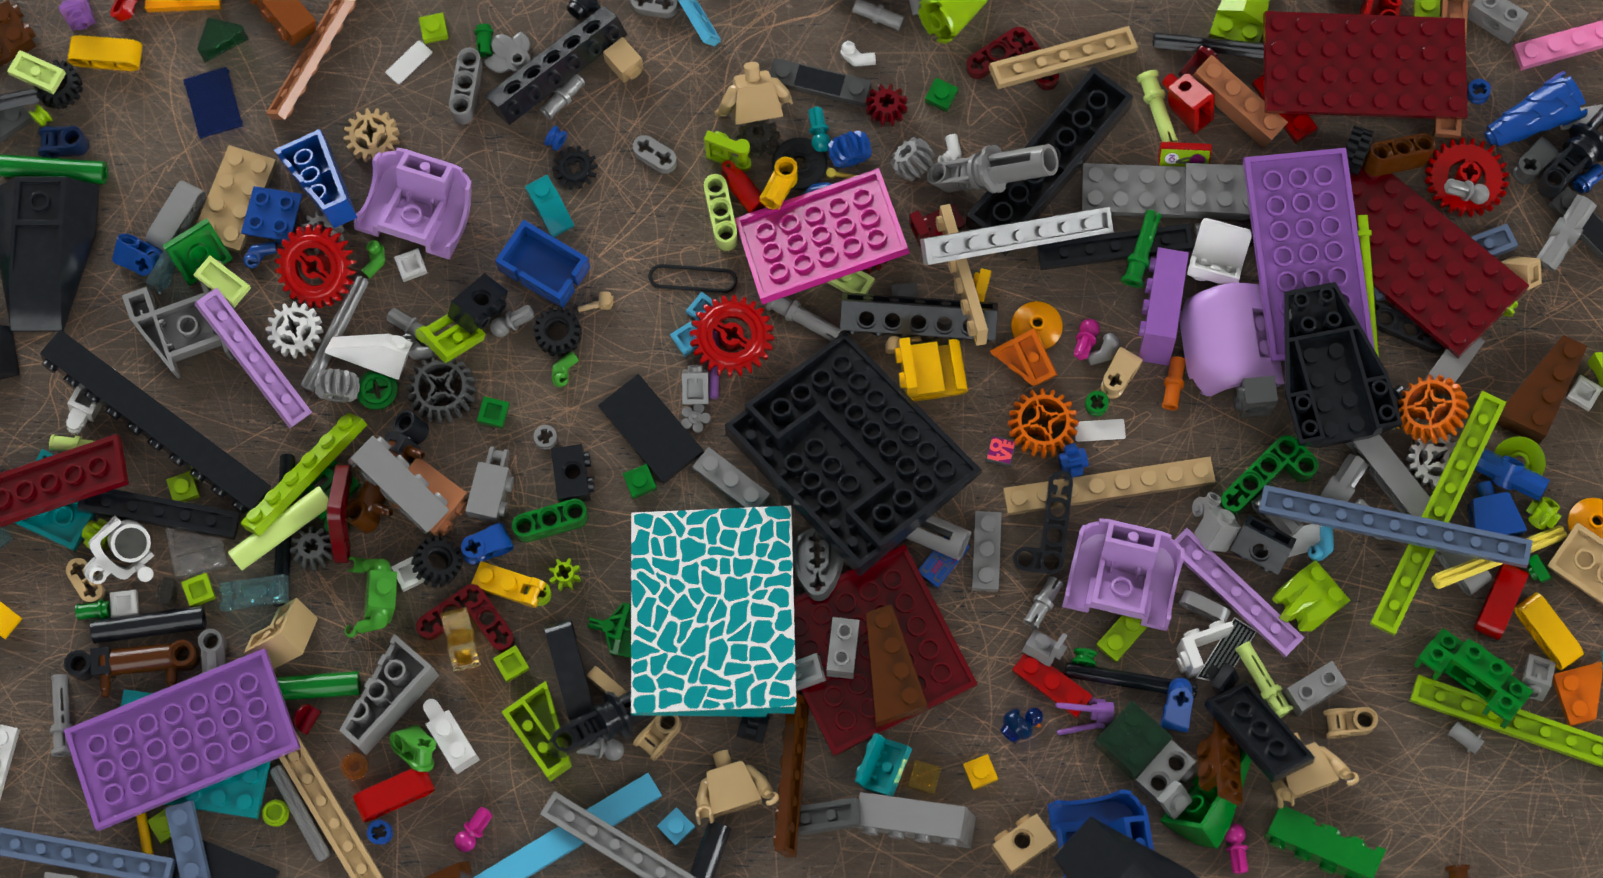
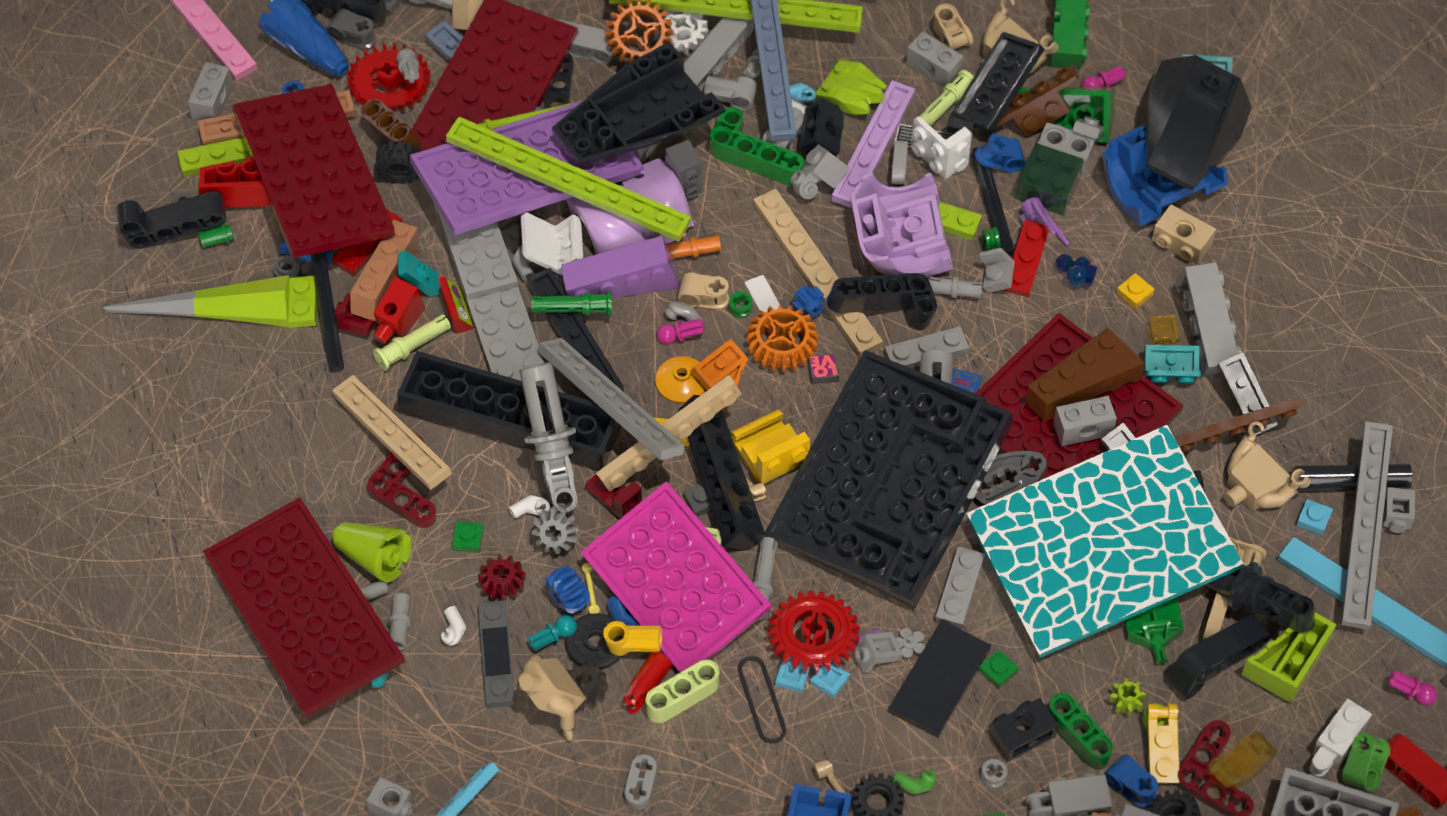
camera: 115 degrees left, 15 degrees down
(511, 664) = (1238, 714): lime plate -> none
(721, 148) = (615, 699): lime plate -> none
(1223, 127) = (418, 273): none -> teal plate
(1267, 275) = (569, 179): none -> lime plate

